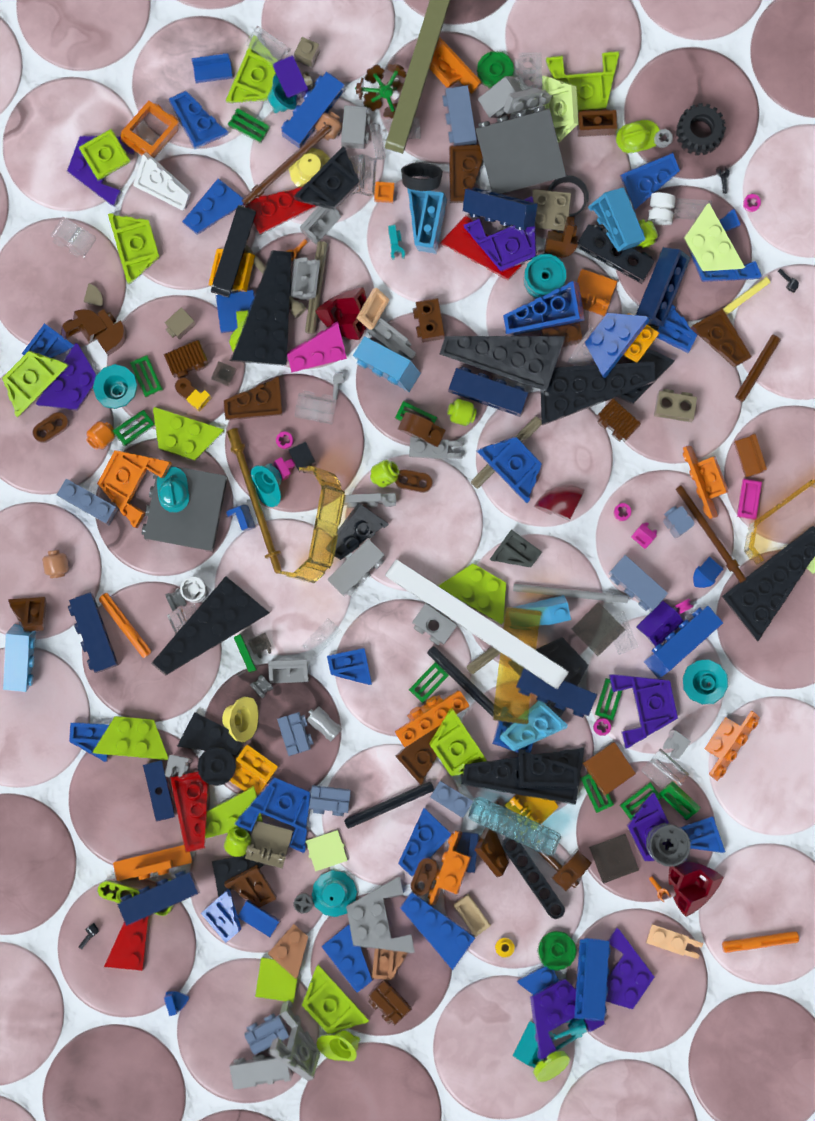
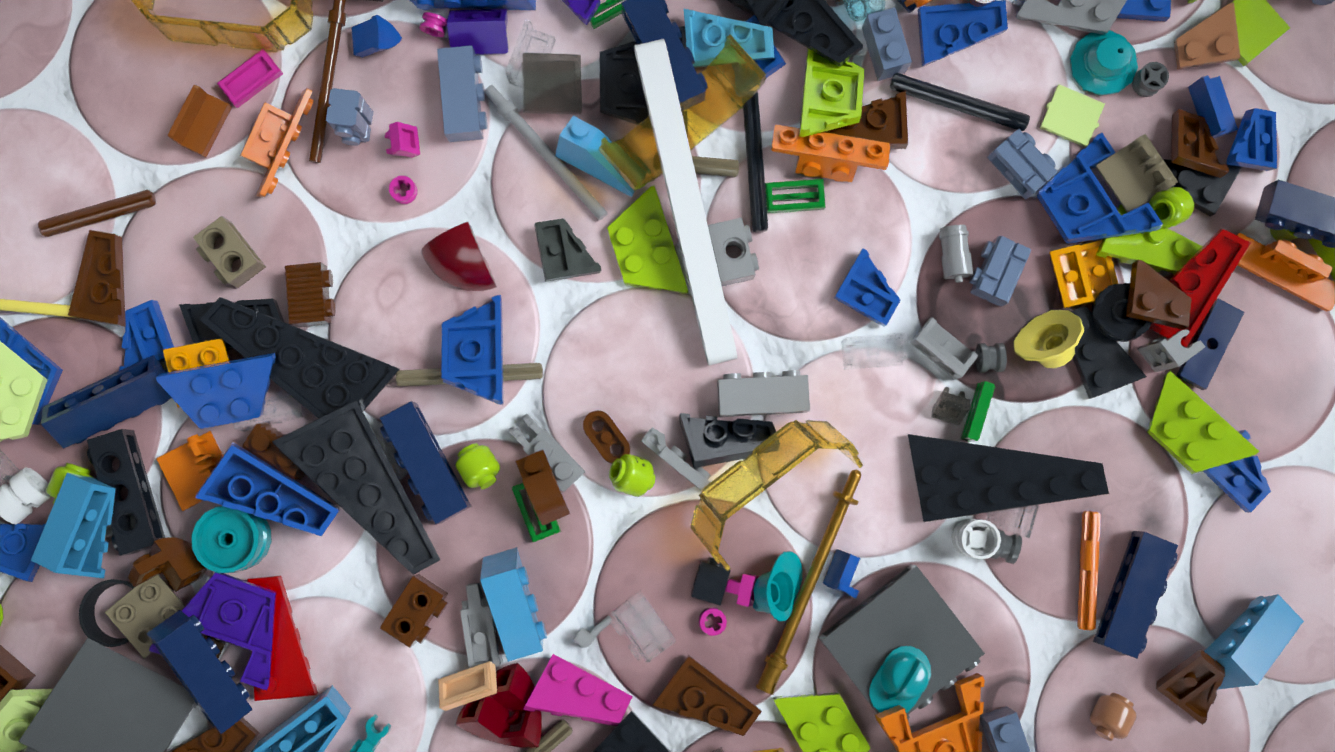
camera: 145 degrees left, 0 degrees up
(206, 784) = (1156, 299): none -> reddish brown wing

